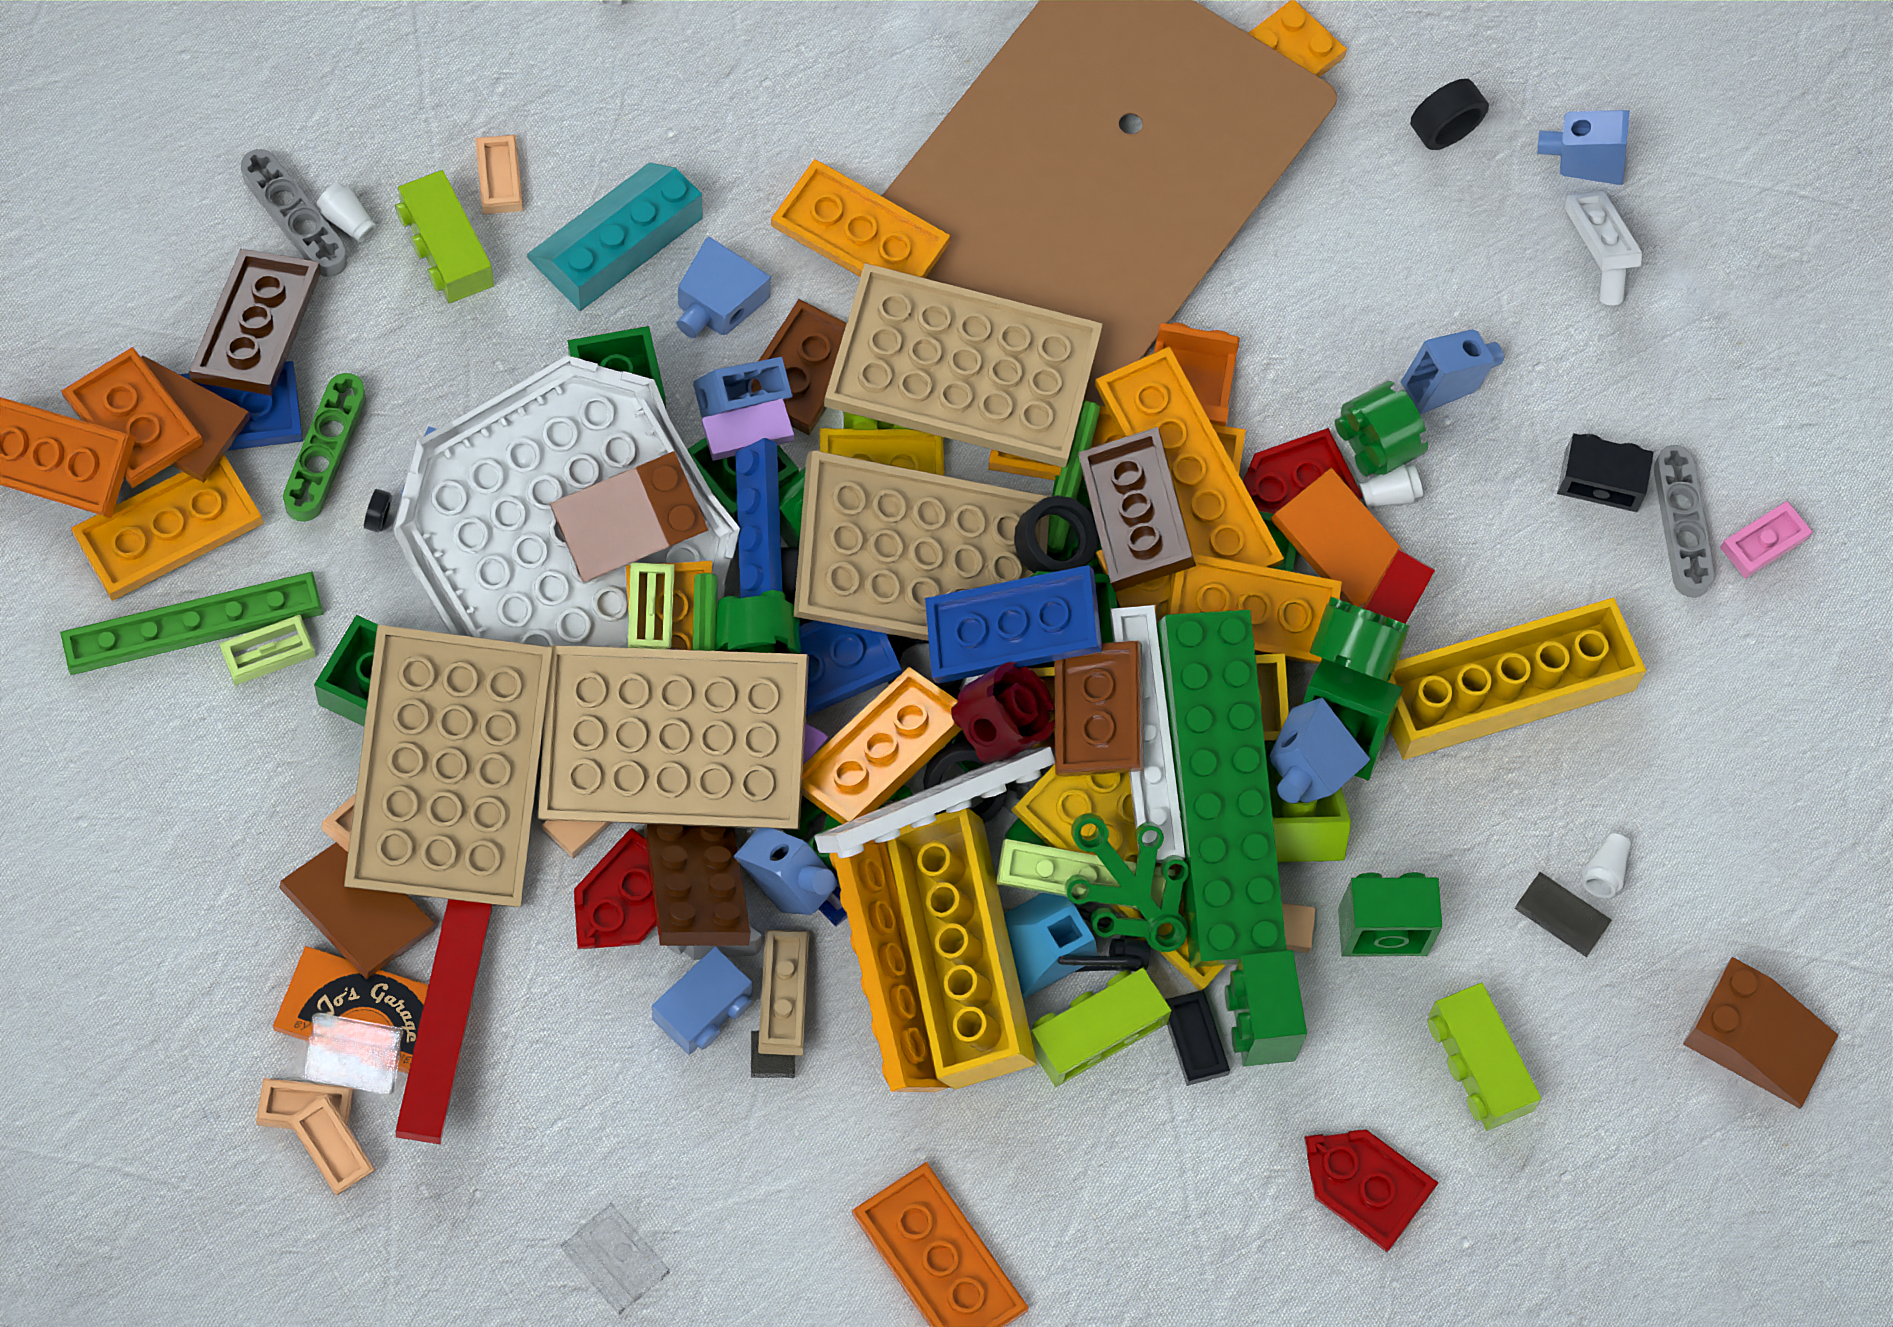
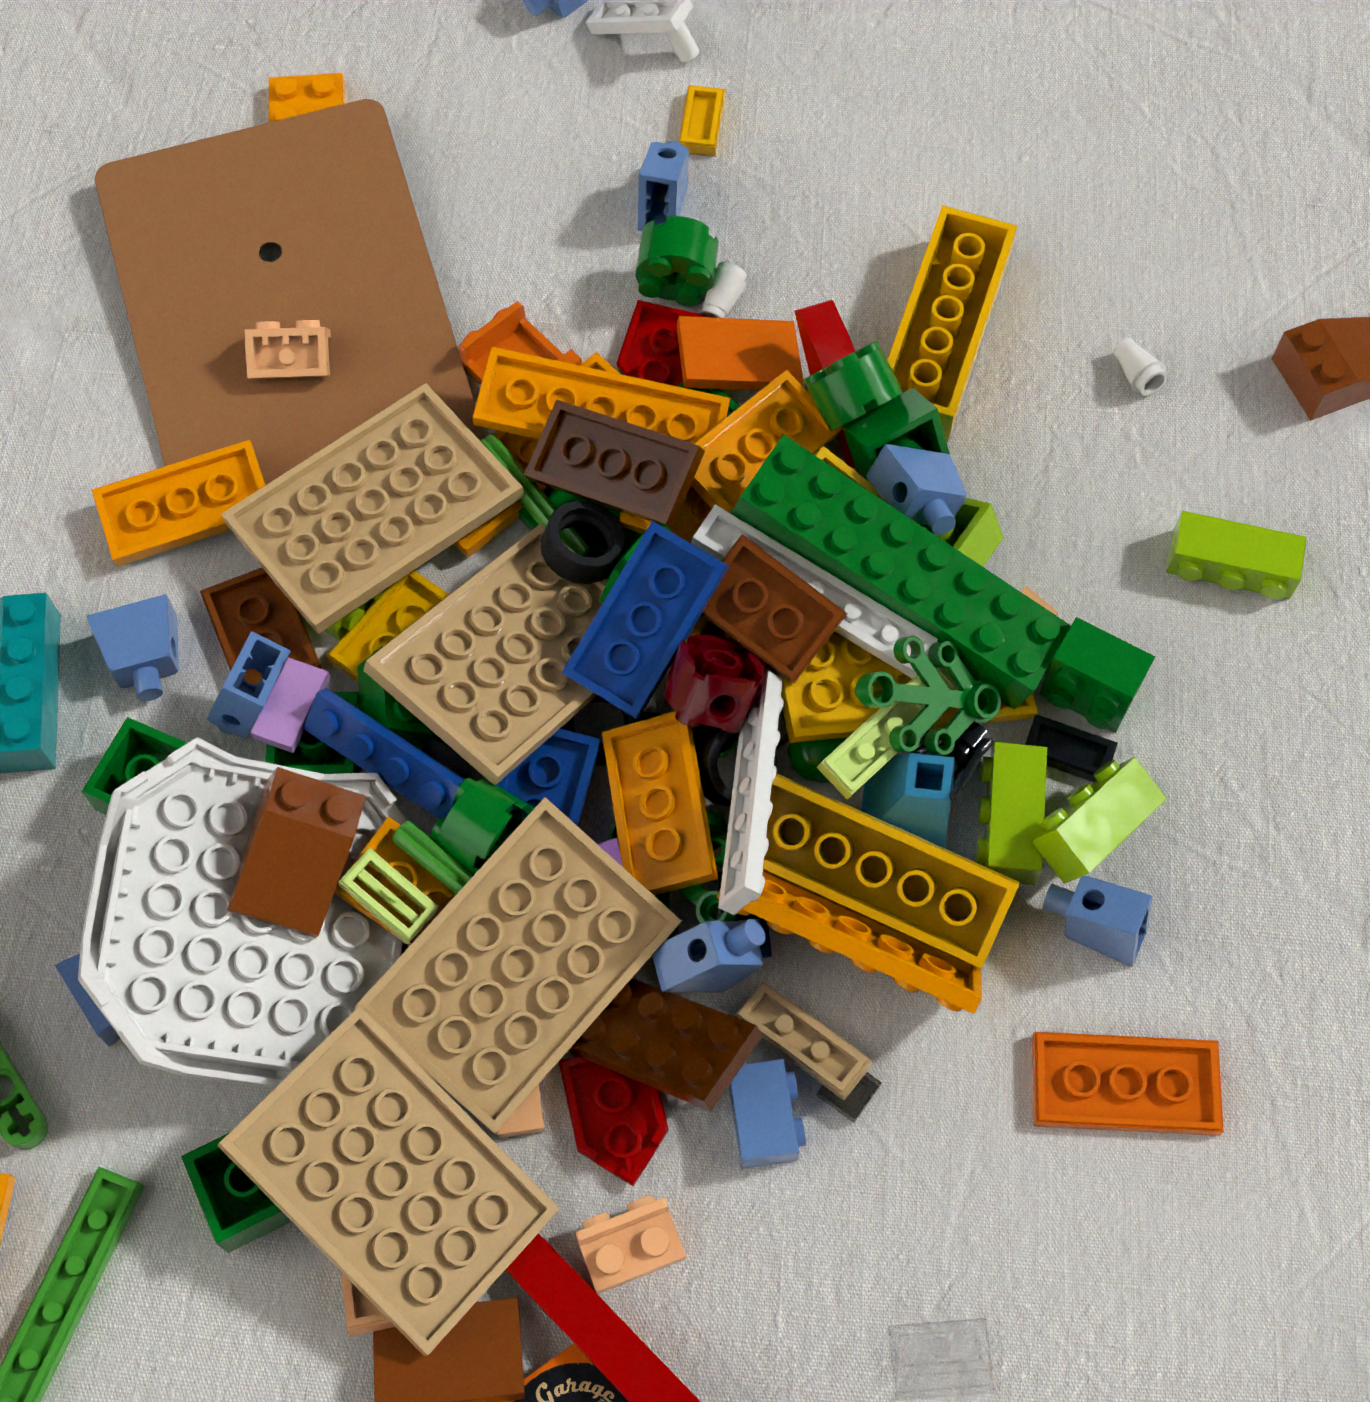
camera: 45 degrees left, 0 degrees up
(272, 663) = (155, 1266): yellowish green tile -> none
(377, 510) = (92, 1067): black tile -> none
(533, 975) = (629, 1243): none -> light nougat bracket
(1049, 203) = (287, 351): none -> light nougat bracket
(1059, 1150) = (1103, 916): none -> medium blue torso
(1139, 1088) = (1098, 818): none -> lime brick
(1367, 1183) = (1280, 711): red tile -> none
(1390, 915) = (1081, 534): green brick -> none
(1449, 114) = (459, 41): black tyre -> none
(1551, 355) = (702, 119): none -> yellow tile
(1563, 914) = (1153, 424): clear smoke tile -> none
(1605, 472) = (826, 149): black brick -> none
(1688, 520) = (906, 126): light grey beam -> none
(1766, 539) = (960, 91): bright pink plate -> none

